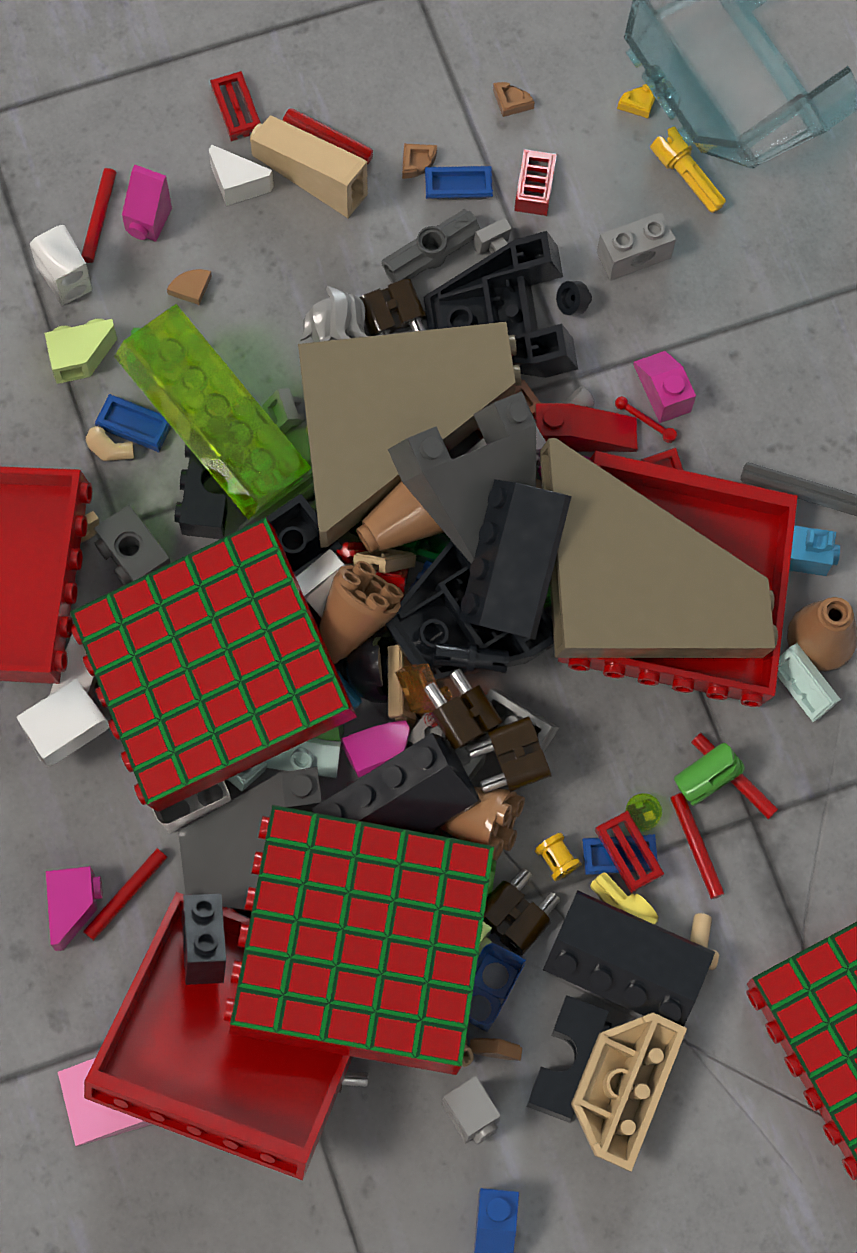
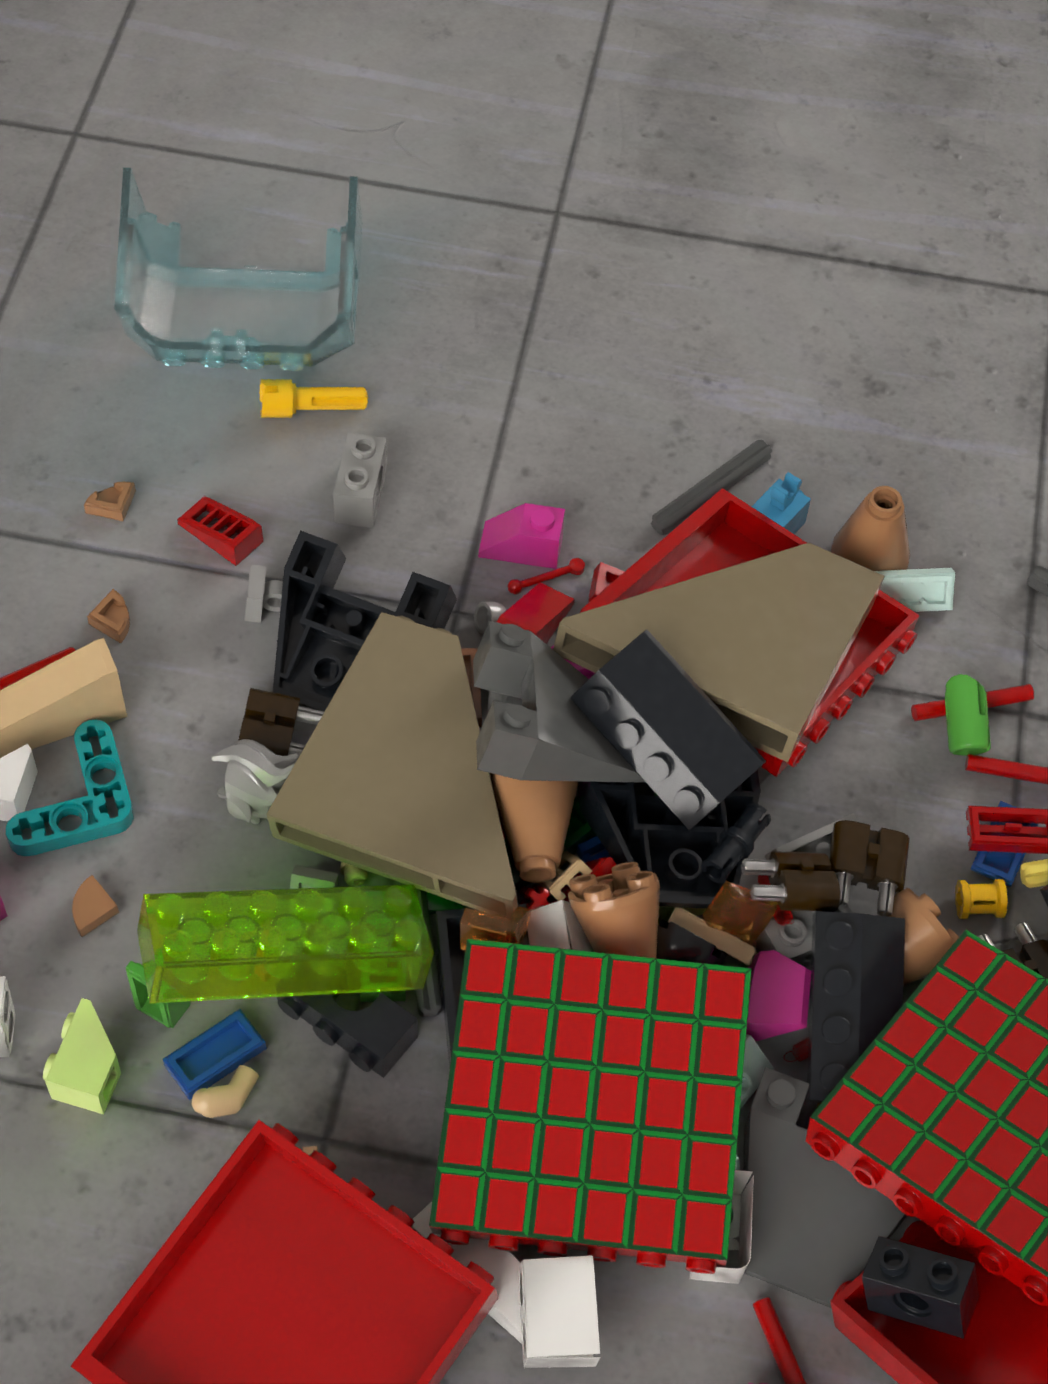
camera: 60 degrees left, 15 degrees down
(127, 530) = (392, 1114): dark grey brick -> none
(262, 240) = (91, 808): none -> teal beam
(298, 545) = (494, 928): none -> clear orange tile
(447, 236) = (227, 670): dark grey piece -> none
(458, 182) = (168, 593): blue tile -> none
(573, 298) = (376, 562): black tile -> none
(637, 101) = (201, 400): yellow tile -> none
(645, 811) = (964, 794): clear neon green tile -> none

